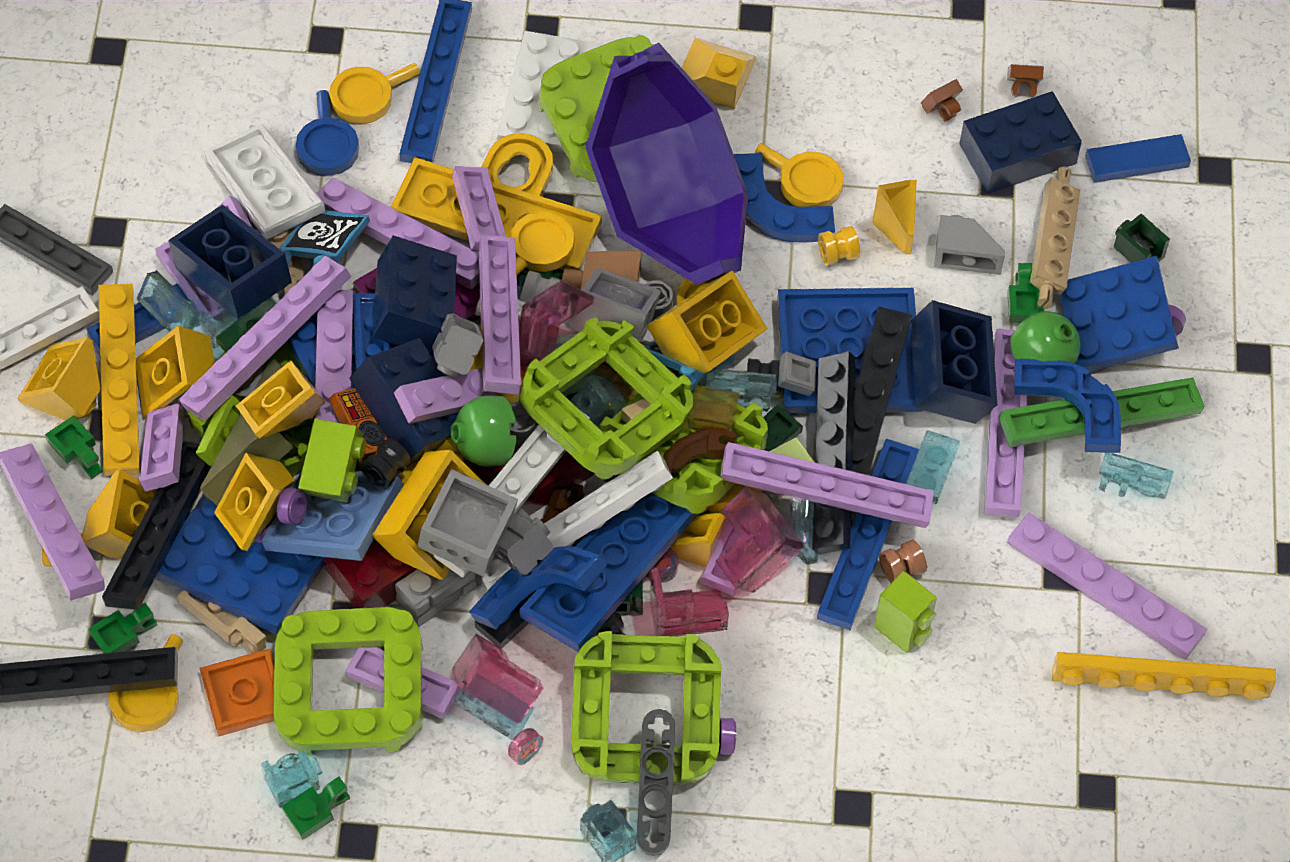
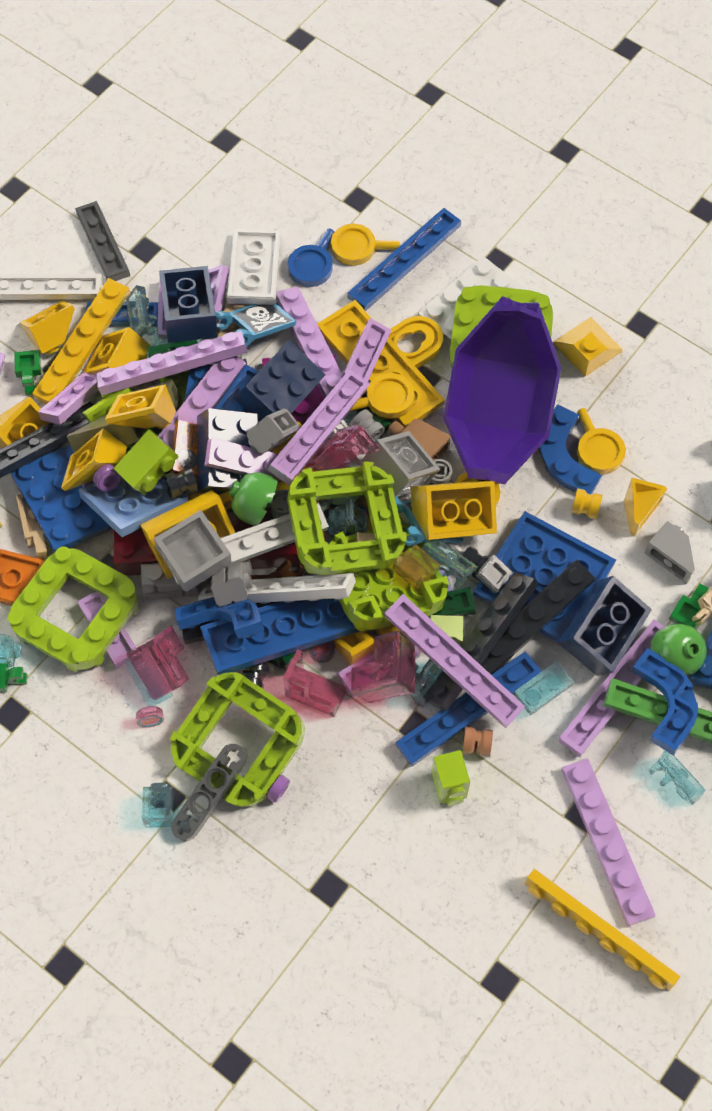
camera: 35 degrees right, 5 degrees up
(702, 443) = (387, 584): reddish brown piece -> none

